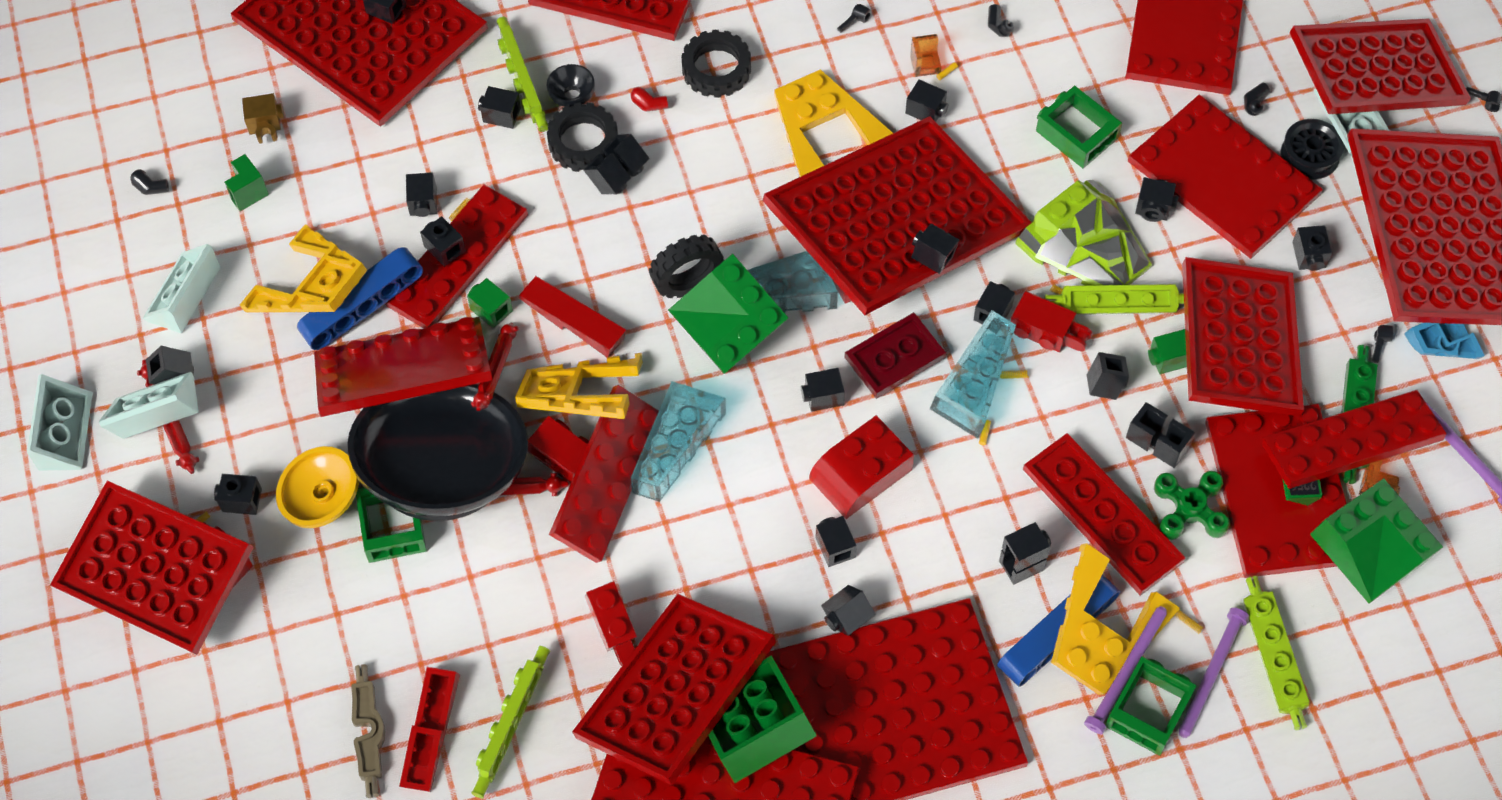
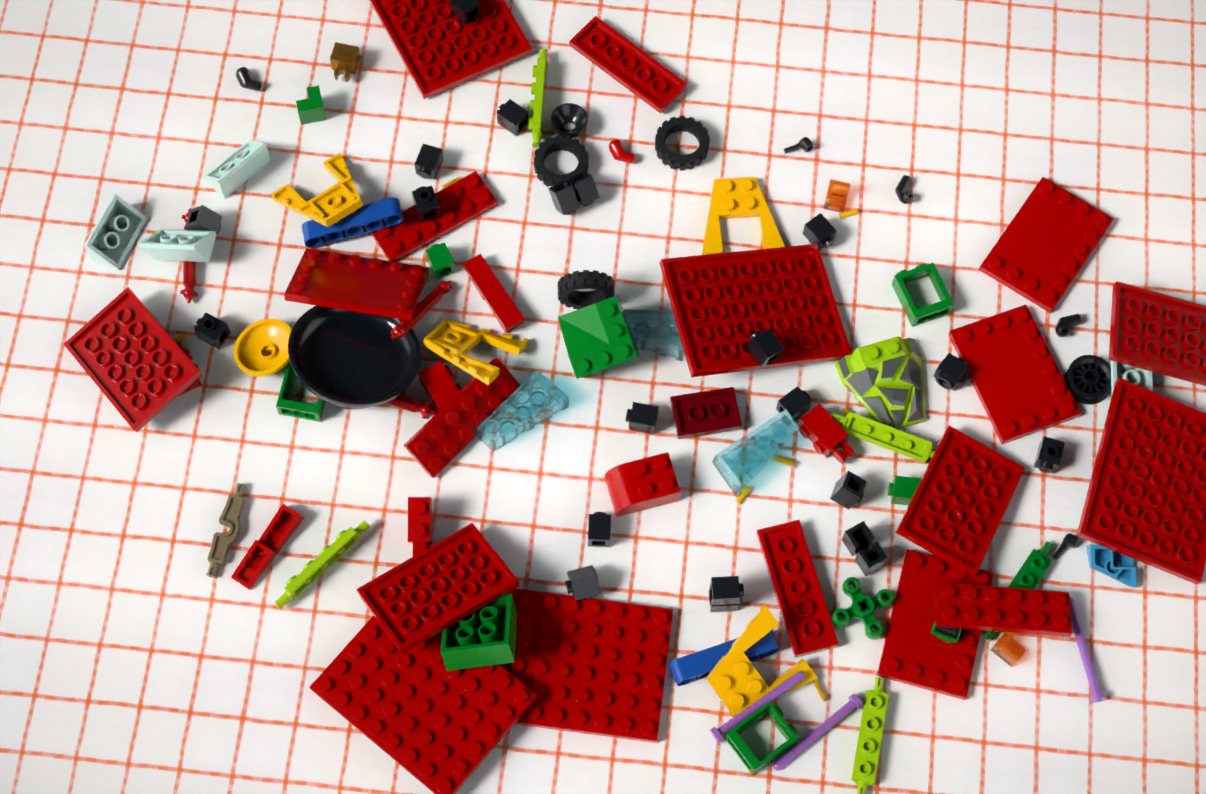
camera: 20 degrees right, 5 degrees up
(1376, 540) = (980, 689): green slope -> none

